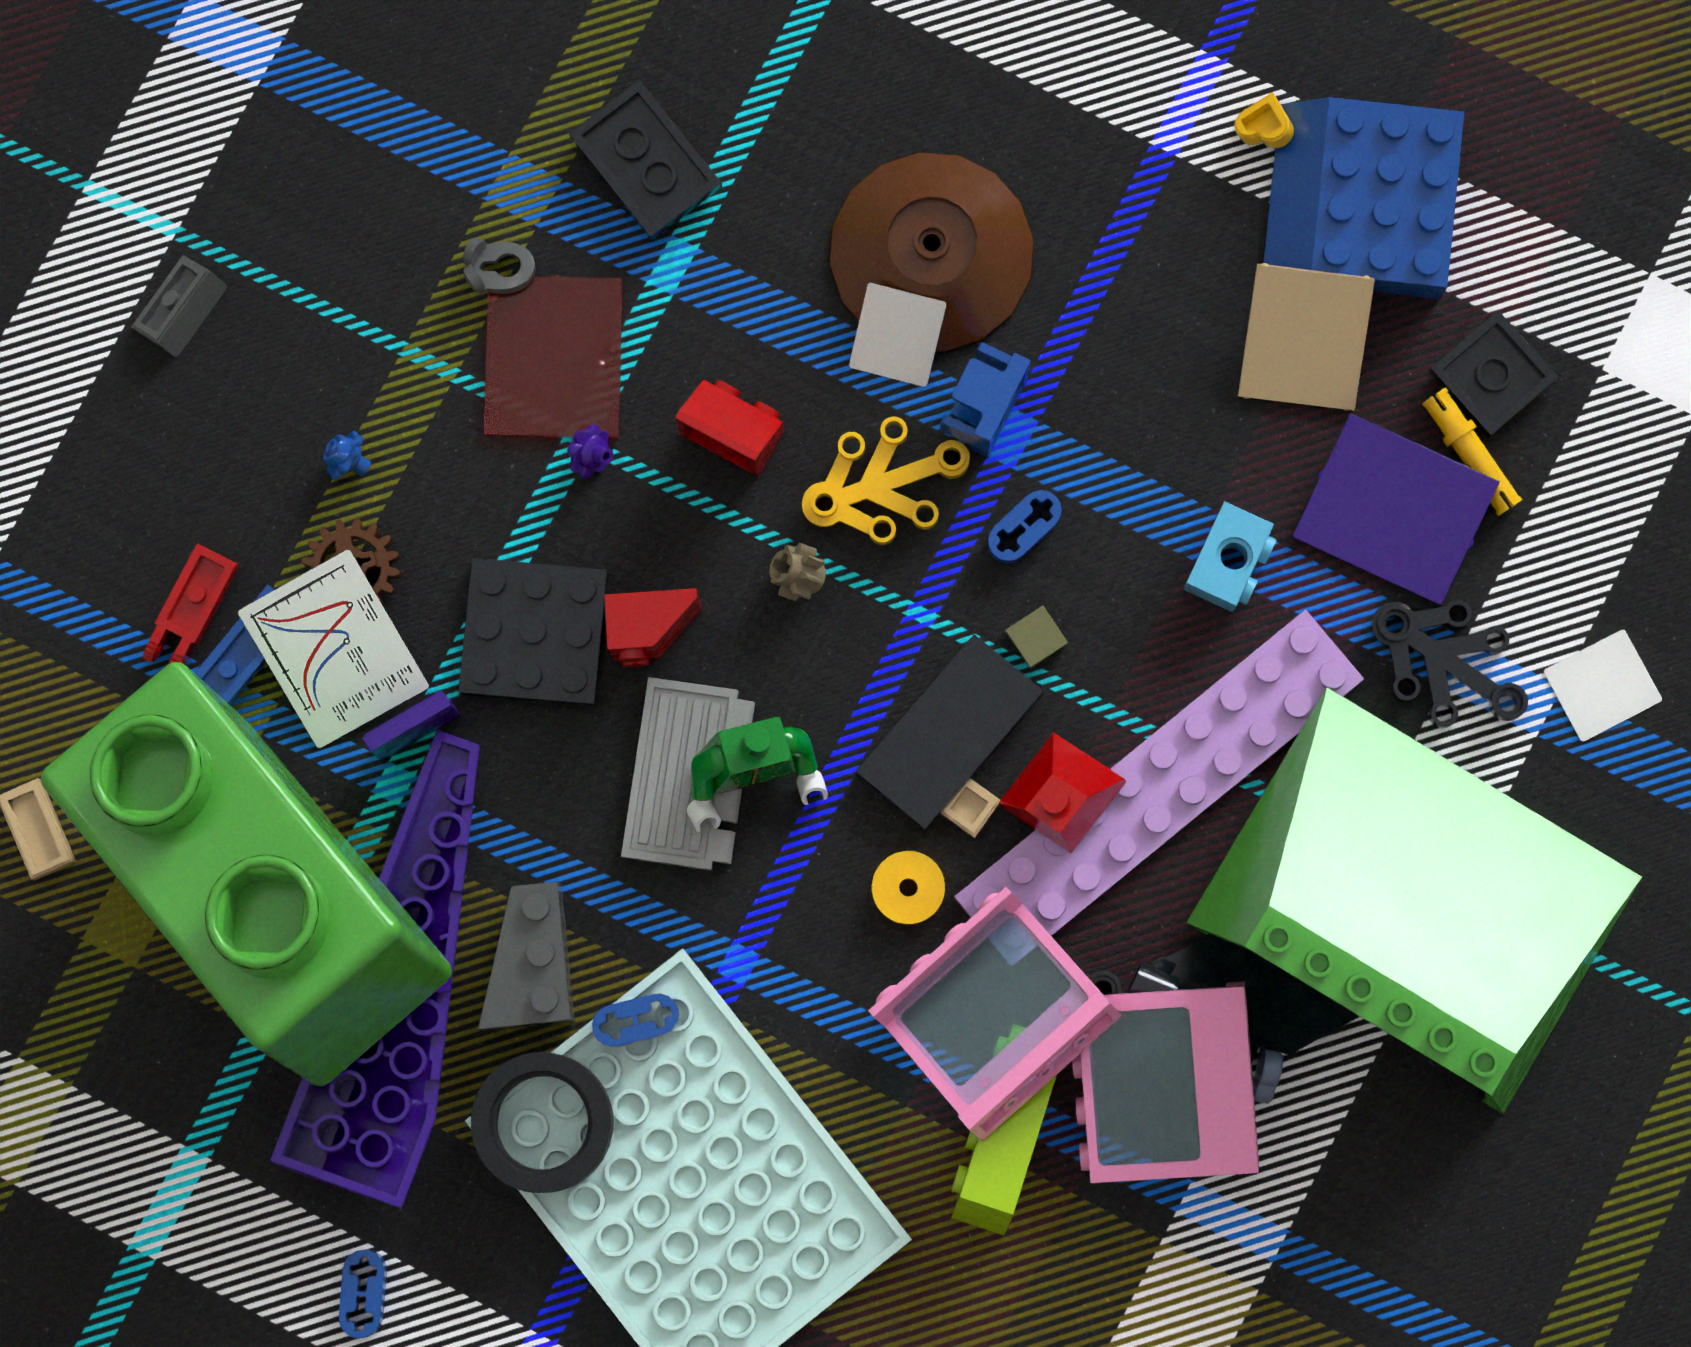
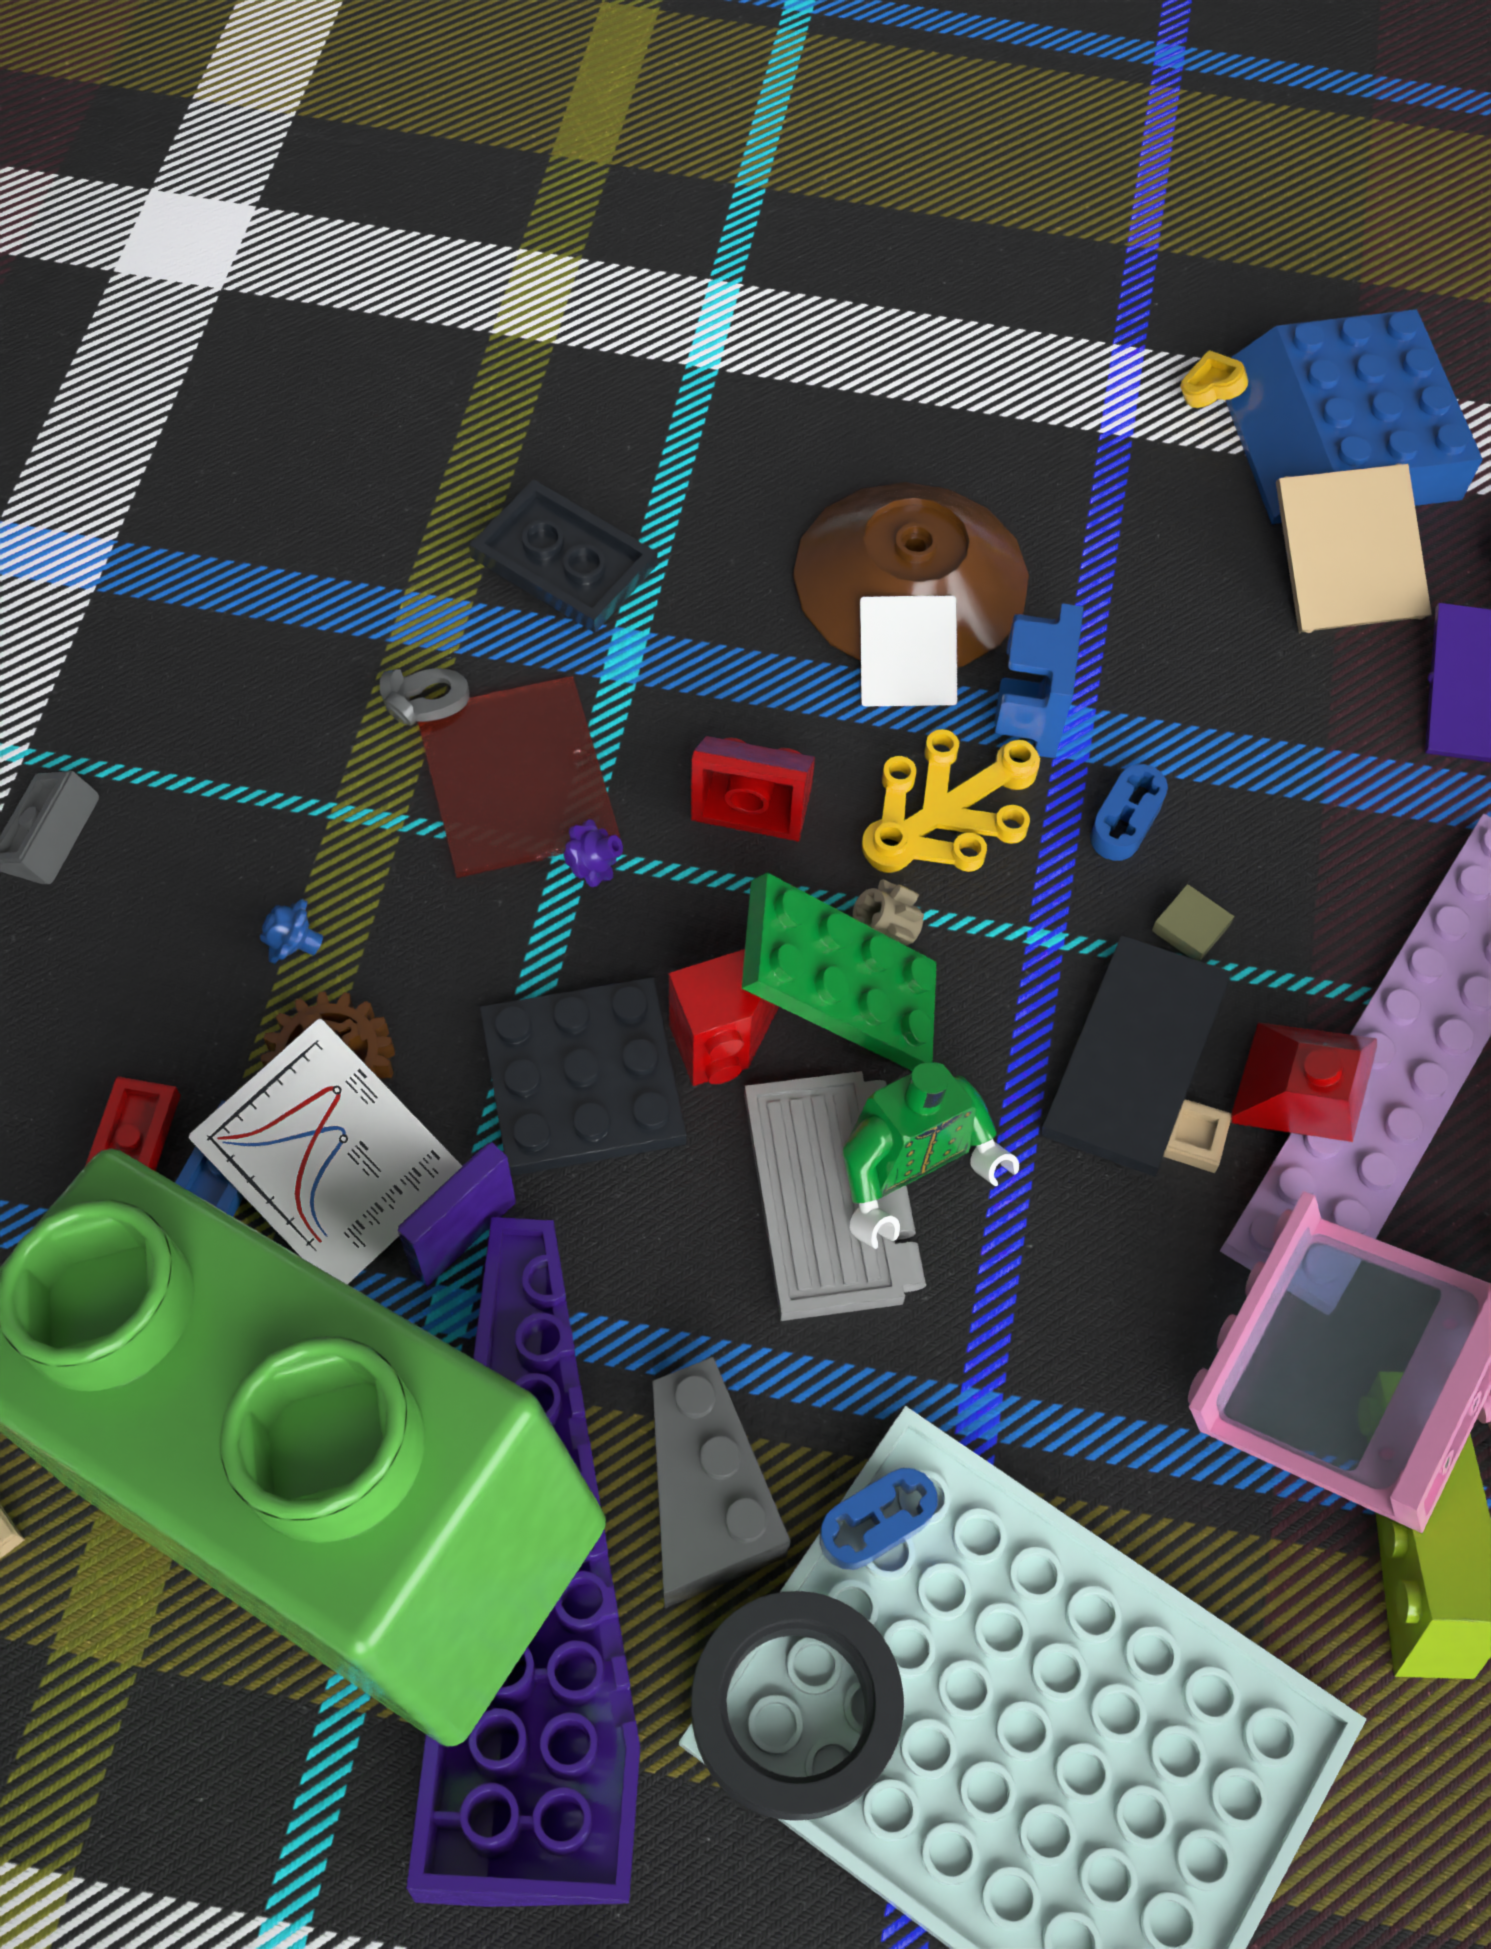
camera: 25 degrees left, 20 degrees down
(736, 622) = (839, 973): none -> green plate
(902, 867) = (1154, 1277): yellow piece -> none
(1234, 530) = (1376, 780): medium azure brick -> none

